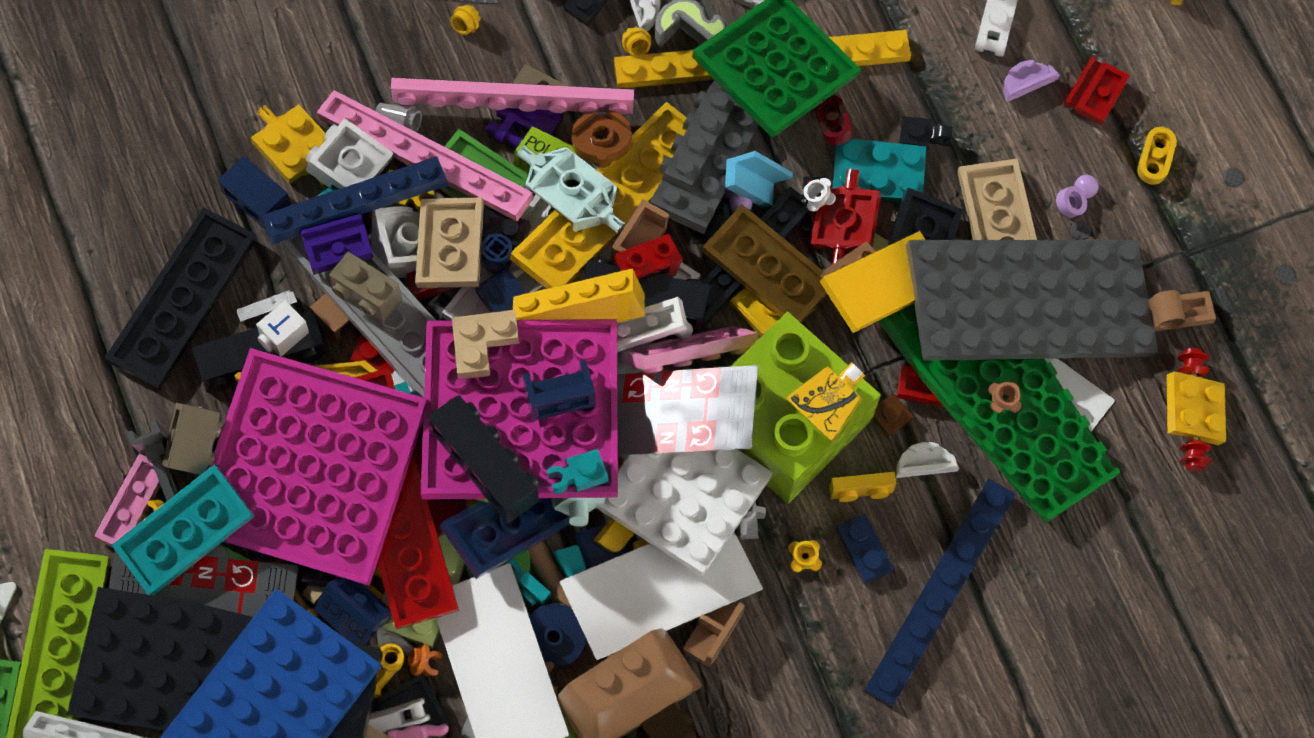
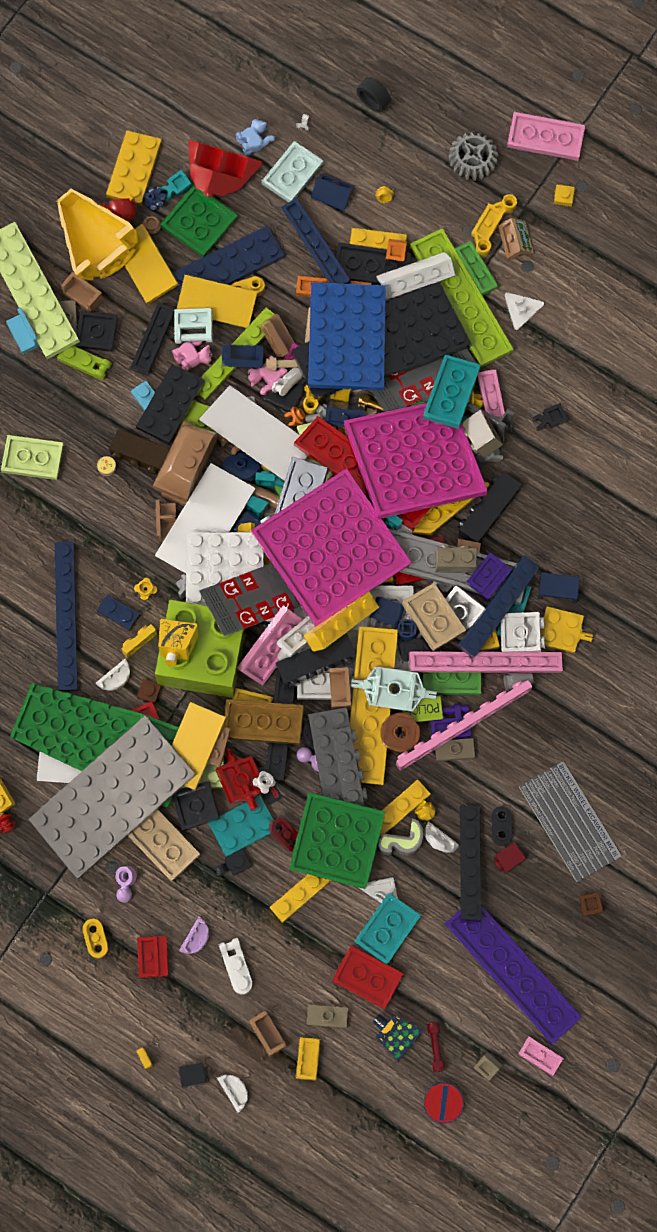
camera: 150 degrees right, 5 degrees up
(72, 419) = (552, 416): none -> black plate
(181, 298) = (550, 511): black plate -> none
(265, 305) = (501, 536): white tile -> none
(281, 329) = (482, 517): white brick -> none
(465, 19) = (525, 761): yellow plate -> none
(478, 332) = (380, 566): tan plate -> none
(483, 458) = (327, 500): black brick -> none
(560, 393) = (316, 561): dark blue panel -> none
(583, 470) = (274, 527): teal plate -> none
(651, 257) = (325, 674): red bracket -> none
(754, 177) = (304, 765): medium azure panel -> none
(1008, 389) = (92, 724): nougat plate -> none
(1178, 311) = (29, 851): medium nougat plate -> none

